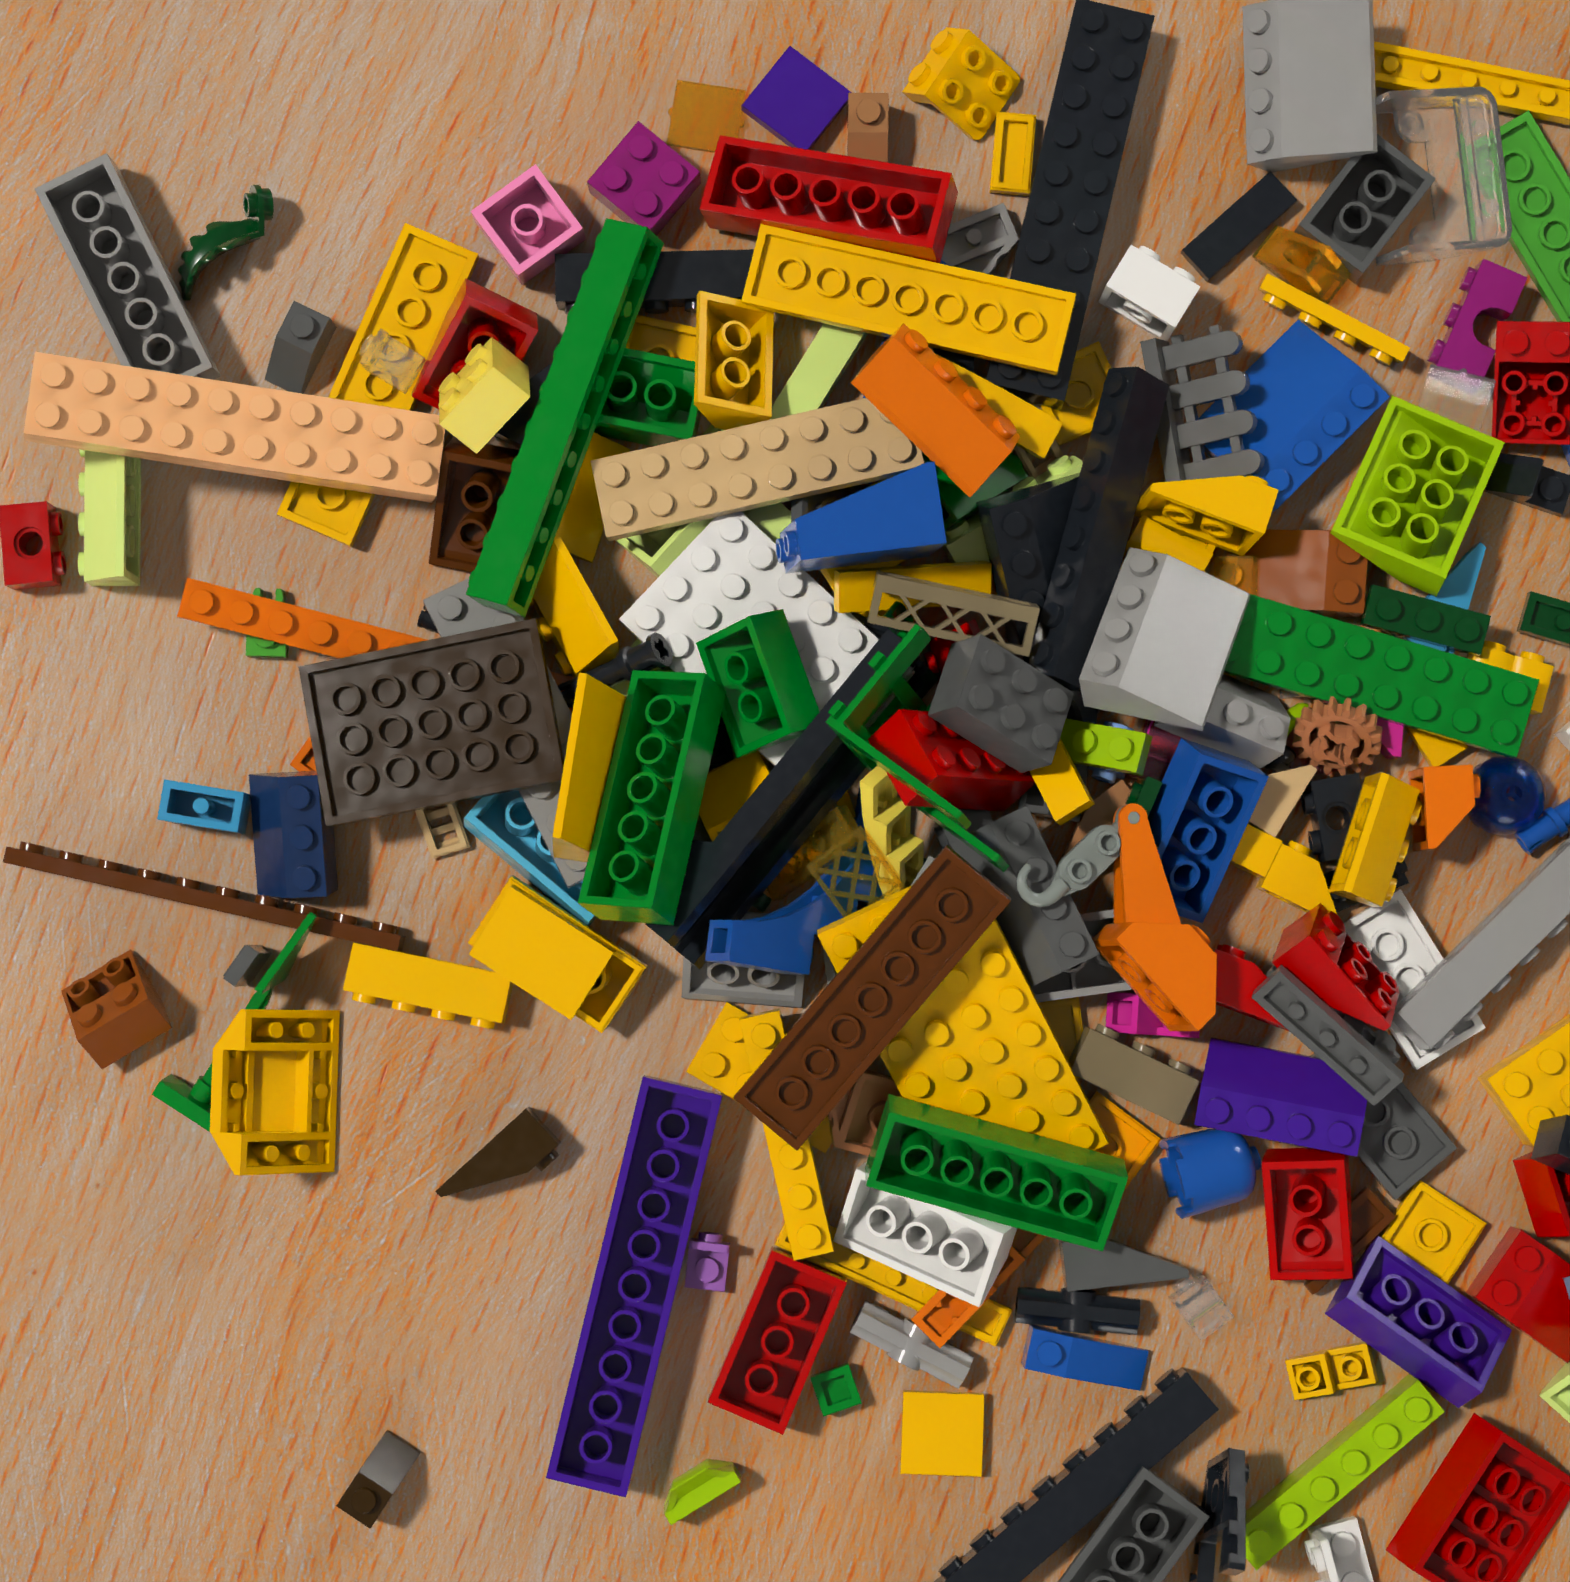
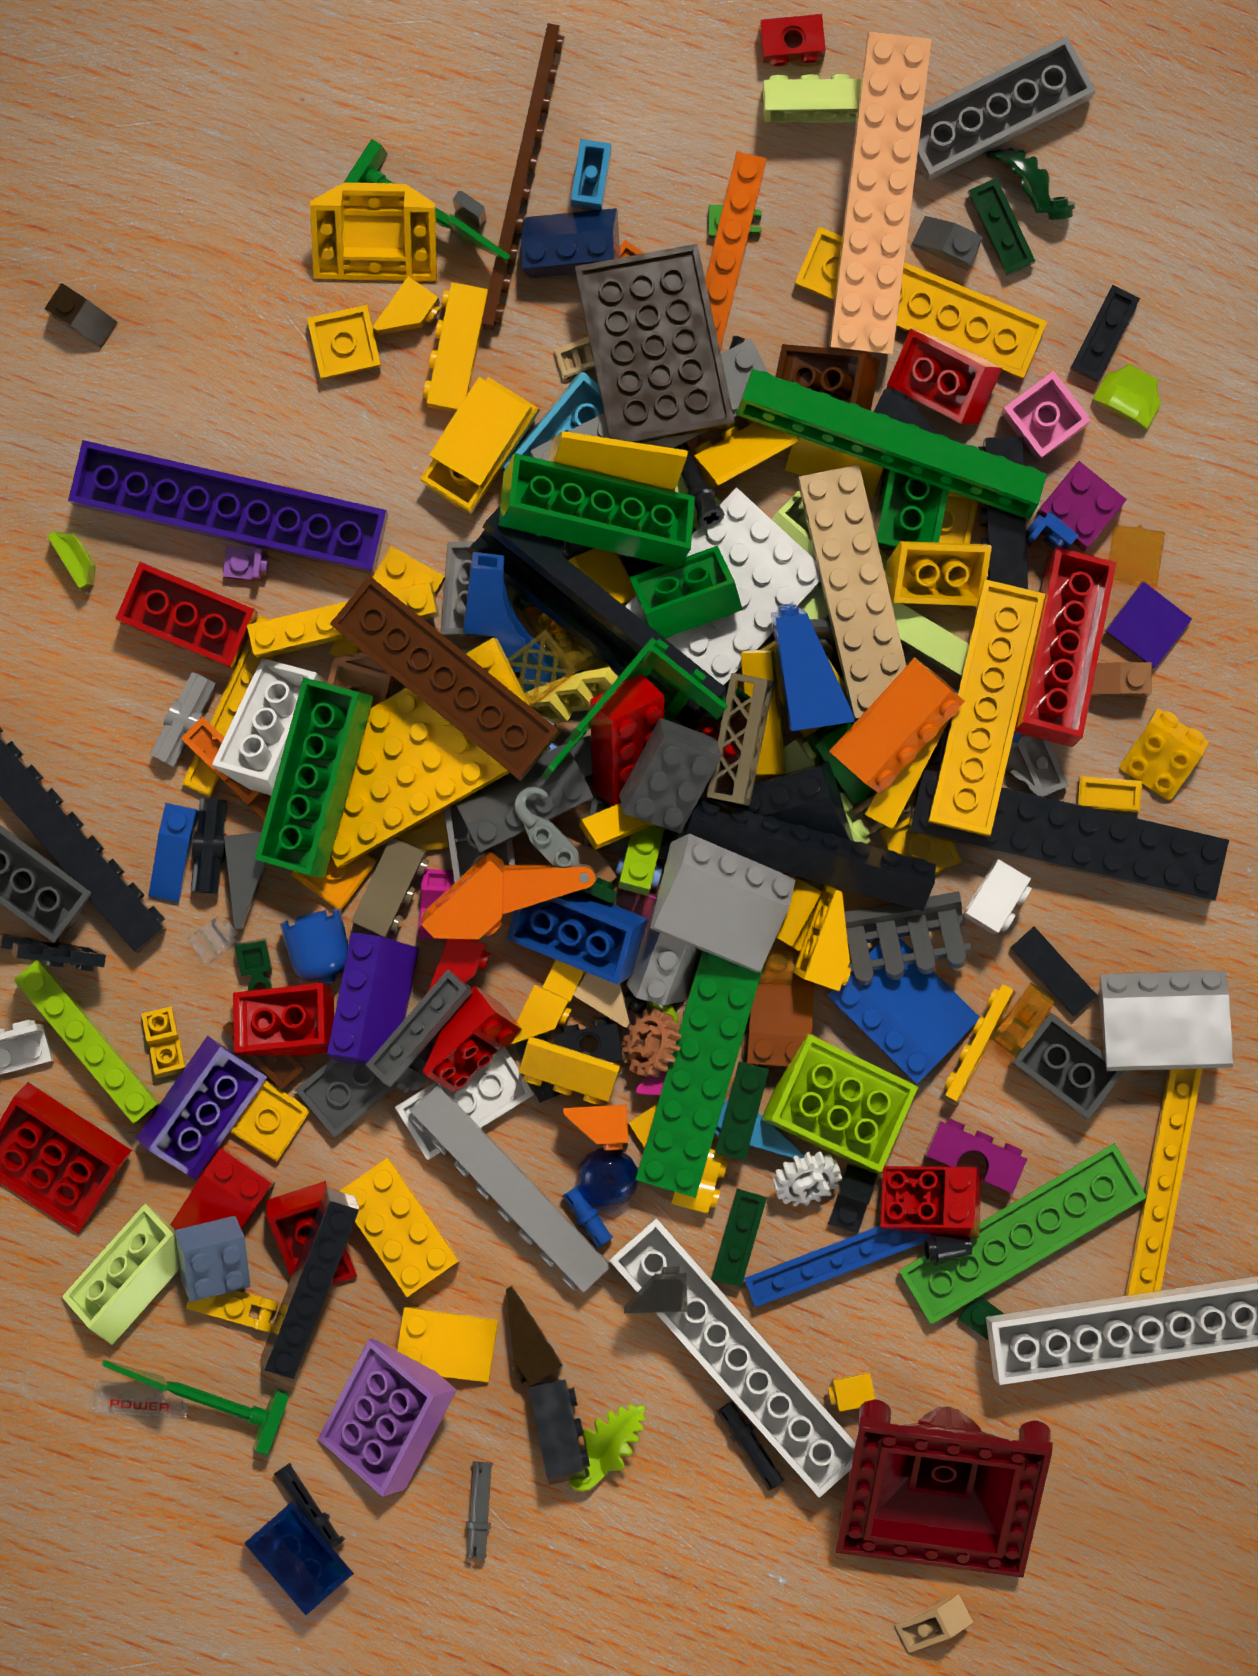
camera: 90 degrees right, 0 degrees up
(115, 1010) = (436, 110): dark orange slope -> none
(280, 280) = (1001, 226): none -> dark green plate
(376, 1047) = (408, 309): none -> yellow slope
(390, 360) = (937, 311): clear bracket -> none
(418, 1131) = (344, 342): none -> yellow plate
(421, 151) = (1105, 333): none -> black plate
(483, 394) = (909, 381): light yellow brick -> none
(501, 121) = (1130, 395): none -> lime slope
(510, 1153) = (329, 414): dark brown slope -> none
(679, 217) = (1055, 532): none -> blue bracket
(835, 1389) = (148, 661): green plate -> none
(942, 1433) = (115, 743): yellow tile -> none
(1226, 1251) = (254, 961): none -> dark green plate
(1457, 395) = (917, 1138): clear piece -> none
(1469, 170) = (1097, 1144): clear windscreen -> none
(1510, 538) = (807, 1179): none -> white gear

